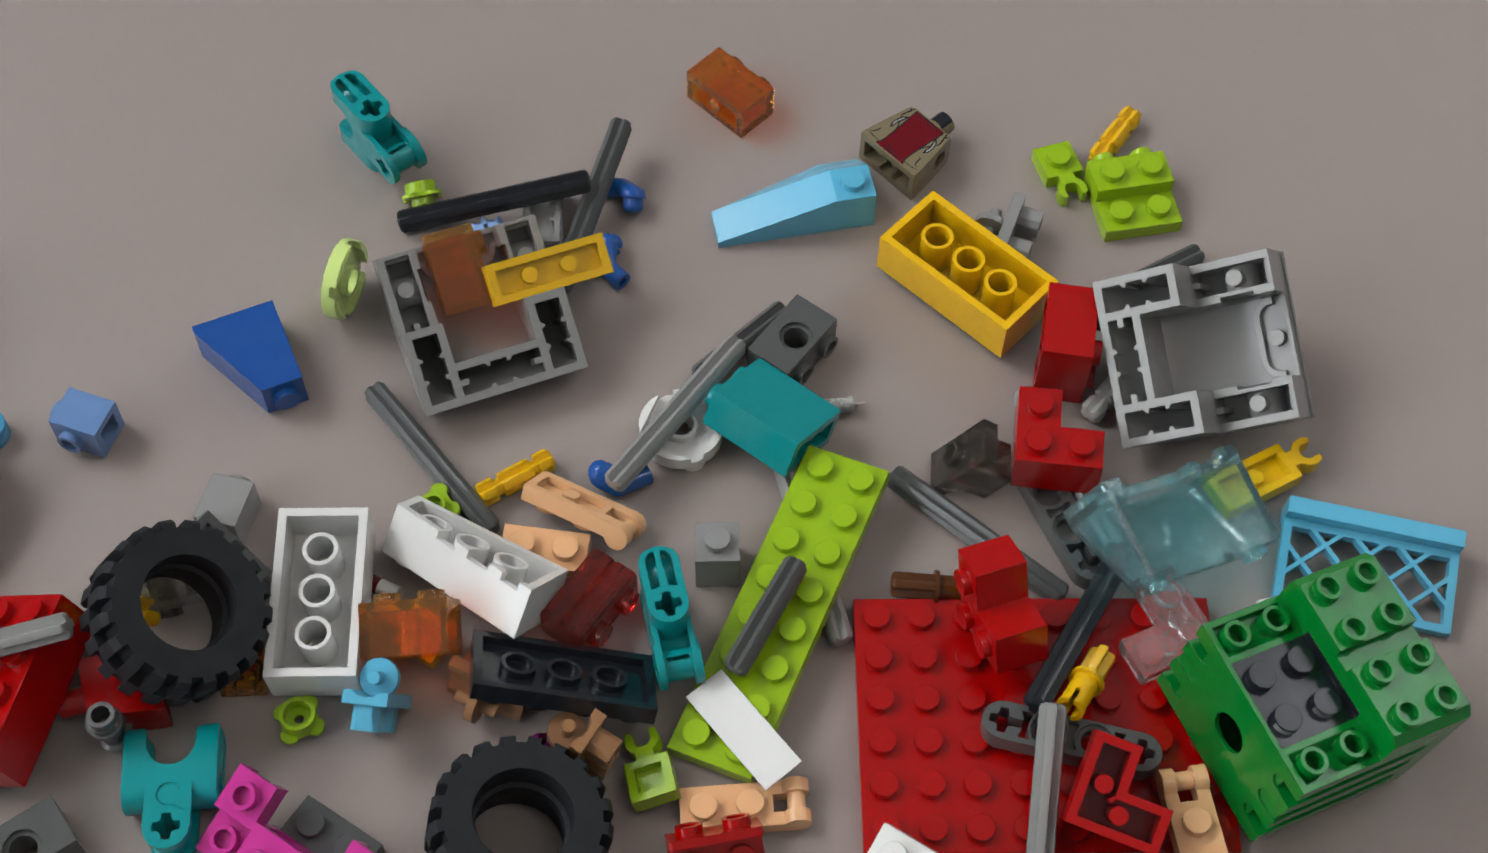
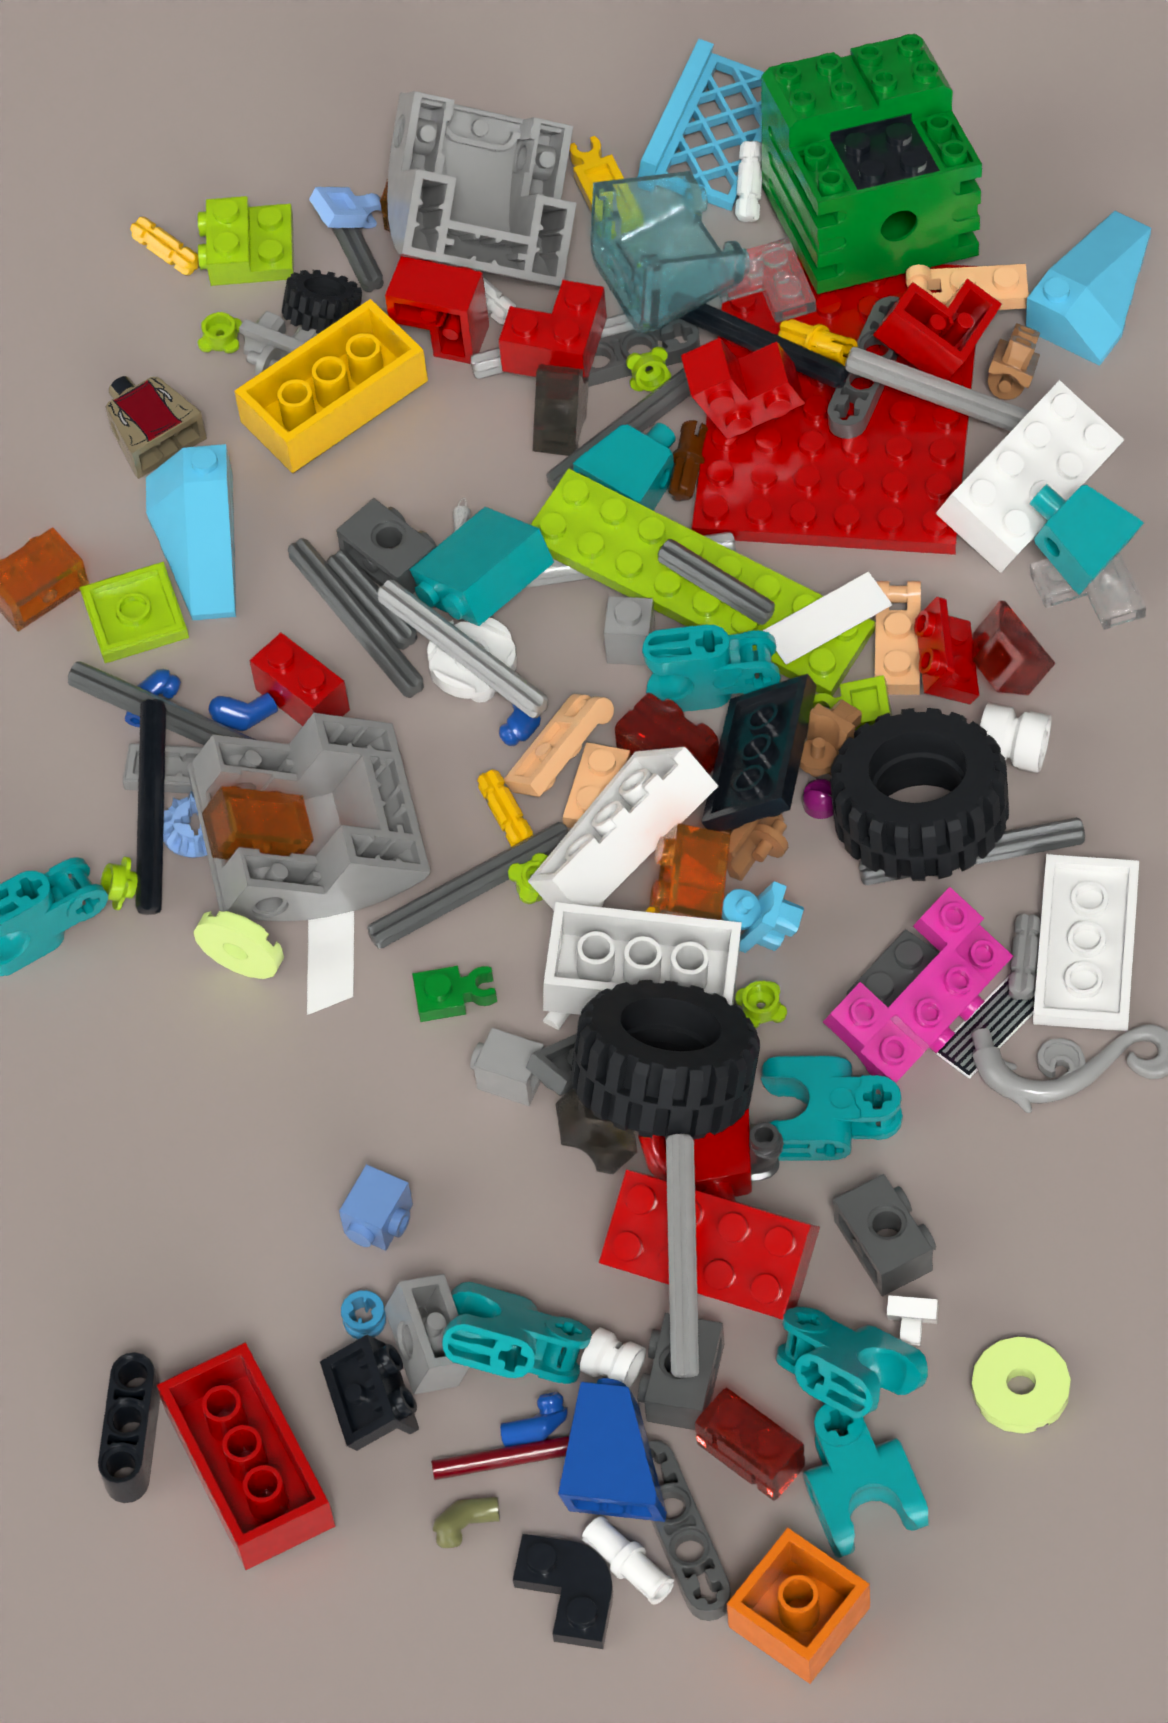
camera: 75 degrees left, 0 degrees up
(254, 356) = (318, 1041): blue slope -> none
(317, 456) = (444, 993): none -> green plate
(356, 364) = (330, 961): none -> white sticker
(547, 269) = (278, 736): yellow plate -> none
(632, 294) = (298, 681): none -> red brick
(697, 348) = (356, 618): none -> dark grey axle
(711, 171) = (134, 612): none -> lime tile
(910, 533) = (632, 463): none -> teal torso
(1023, 181) = (223, 325): none -> lime plate
(1039, 539) = (650, 379): none -> lime plate
(1060, 167) = (195, 300): lime plate -> none
(1073, 241) = (318, 299): none -> black tyre
(1172, 246) = (343, 209): none -> light blue plate

